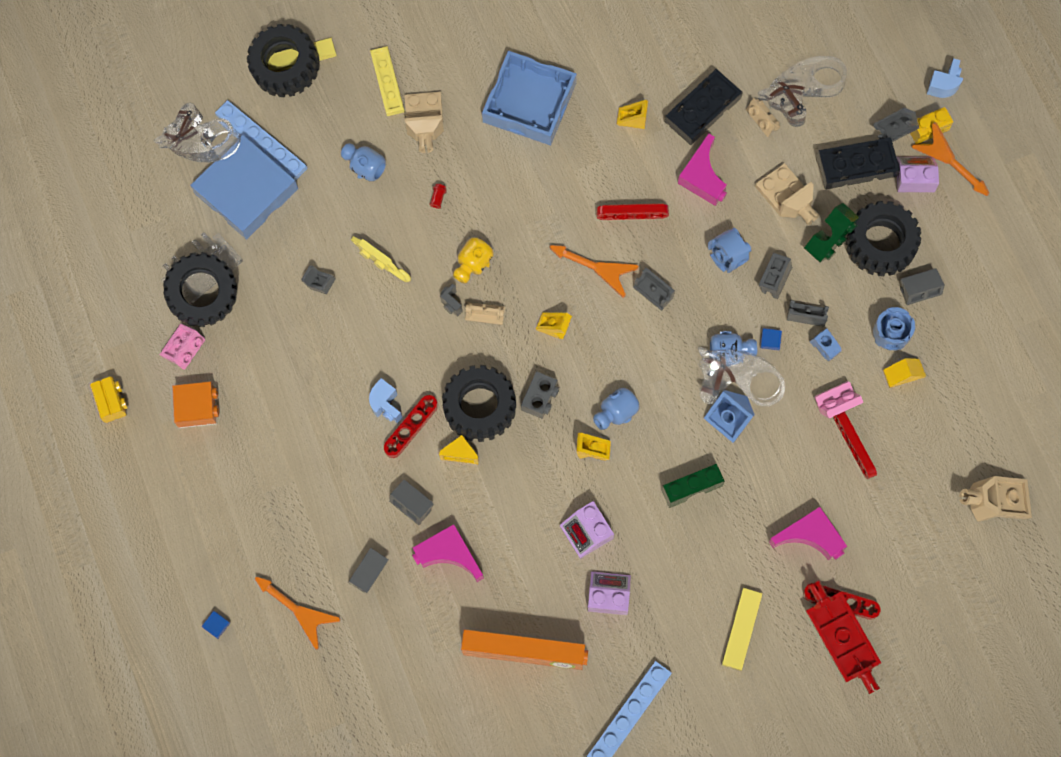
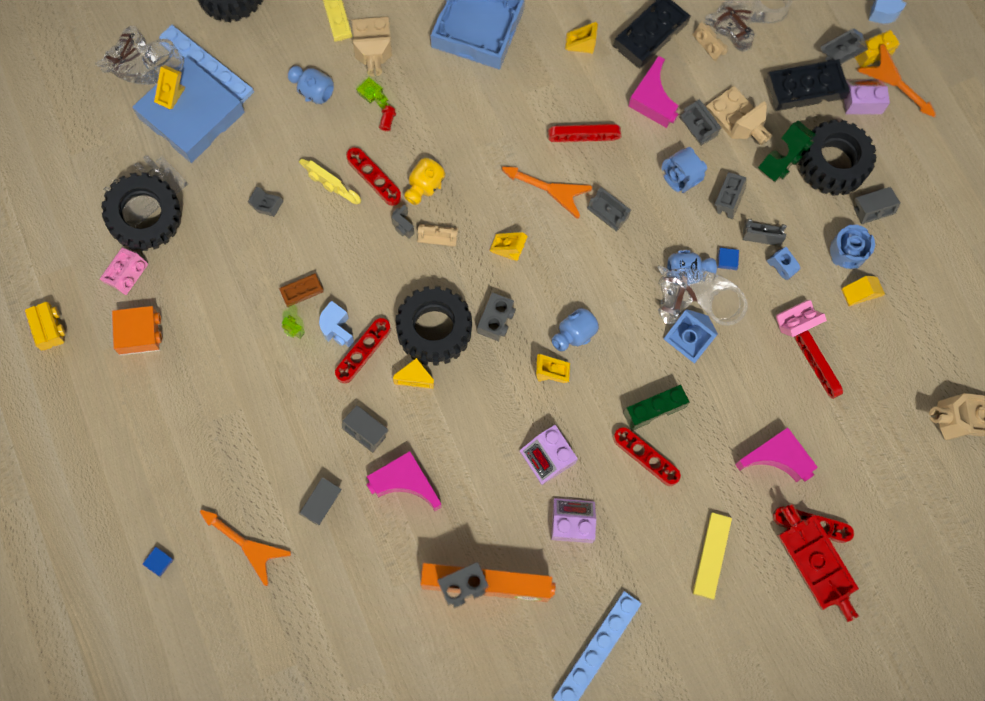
camera: 10 degrees left, 0 degrees up
(226, 167) = (168, 87): none -> yellow slope
(343, 404) = (291, 327): none -> clear neon green plate
(352, 366) = (301, 290): none -> dark orange plate
(423, 169) = (372, 92): none -> clear neon green plate
(423, 254) = (371, 178): none -> red beam
(498, 645) = (460, 579): none -> dark grey brick
(680, 535) = (644, 459): none -> red beam
(748, 201) = (700, 122): none -> dark grey hinge

